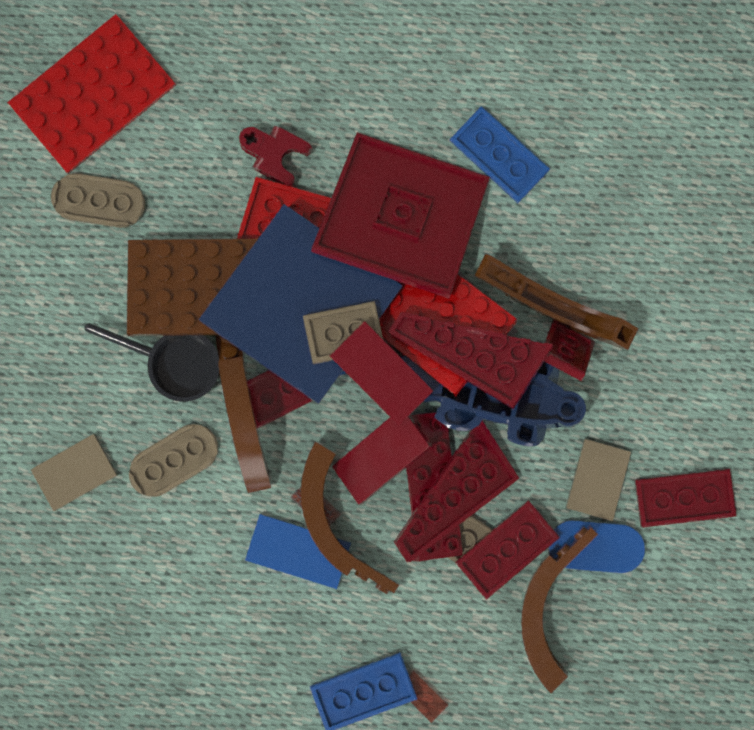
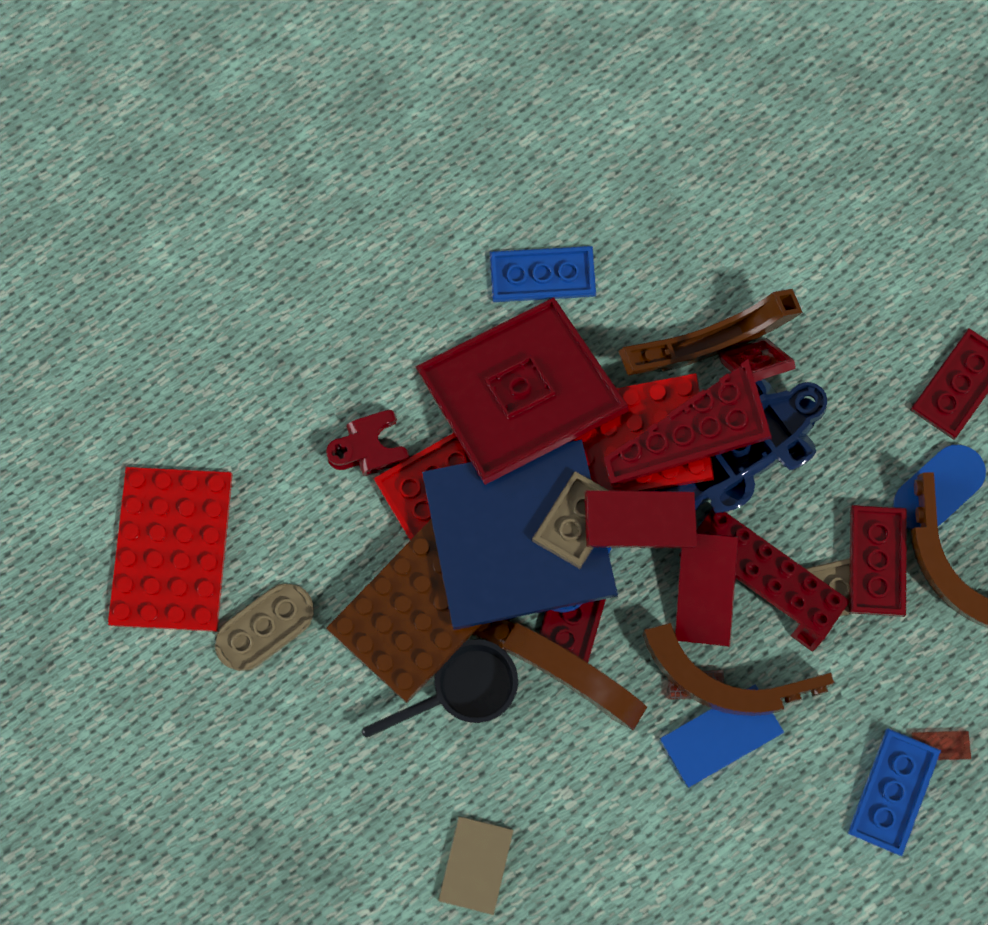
camera: 40 degrees left, 10 degrees down
(173, 460) = (545, 770): dark tan tile -> none
(464, 486) = (794, 545): dark red wing -> none
(598, 480) = (884, 437): dark tan tile -> none

